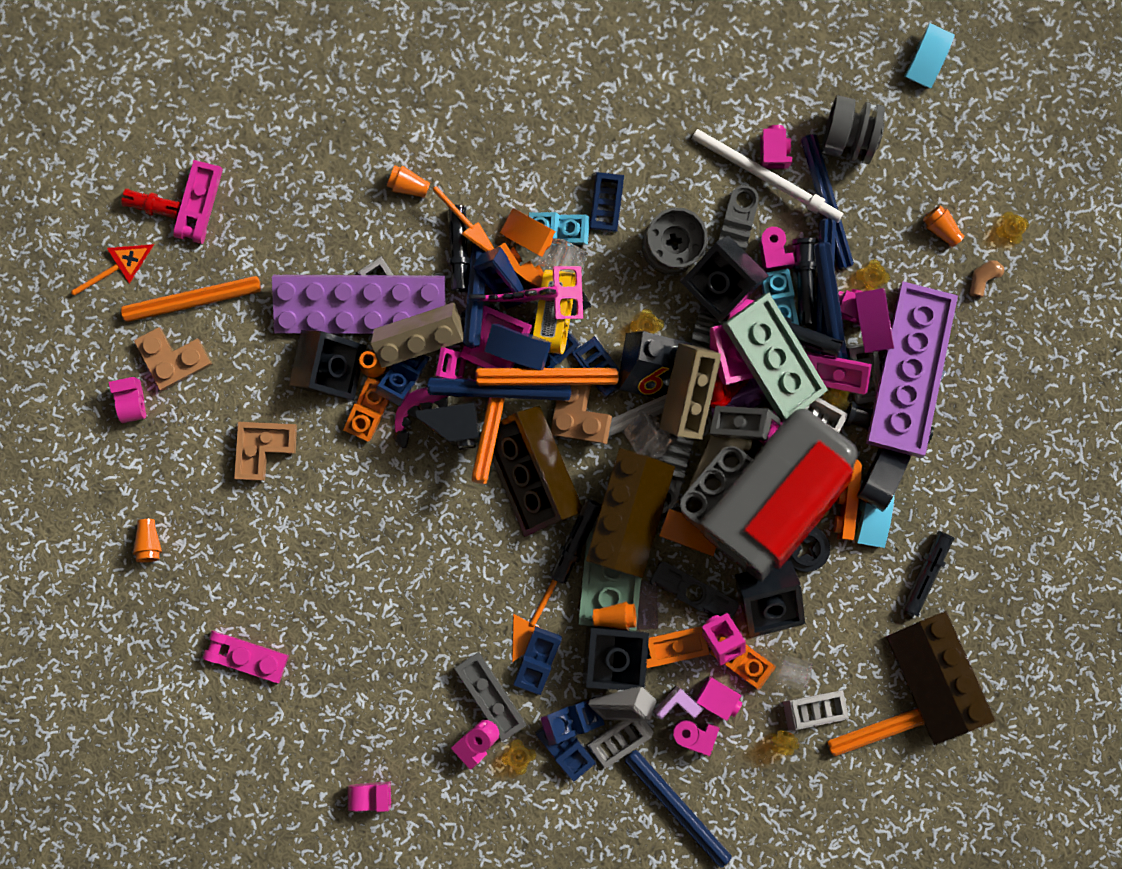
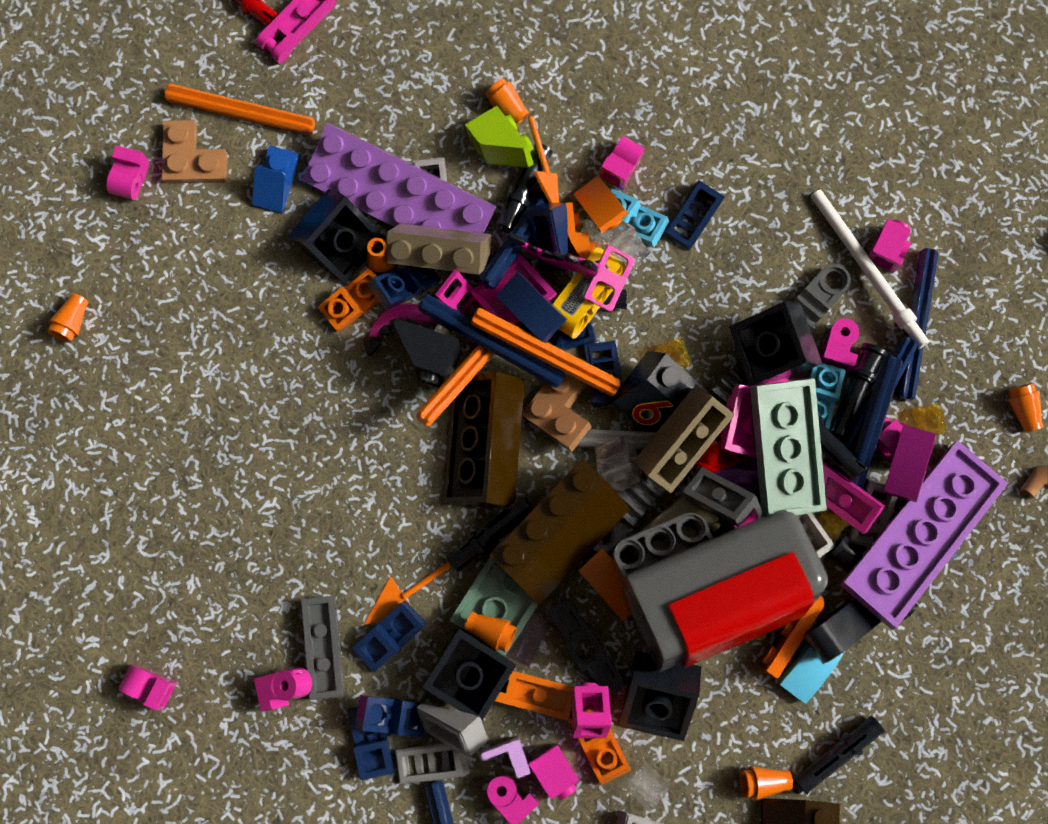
camera: 25 degrees right, 5 degrees down
(127, 259) = (200, 45): piece -> none
(246, 657) = (103, 482): dark pink plate -> none
(251, 342) = (274, 179): none -> blue slope
(257, 440) = (227, 275): medium nougat plate -> none
(418, 220) = (498, 140): none -> lime slope
(510, 757) = (309, 723): clear yellow plate -> none
(527, 187) = (622, 162): none -> dark pink leg
(683, 228) = (759, 279): dark grey wheel -> none
(820, 550) = (737, 672): black gear -> none
(853, 129) = (980, 263): dark grey wheel -> none
(880, 624) = (764, 782): none -> orange cone

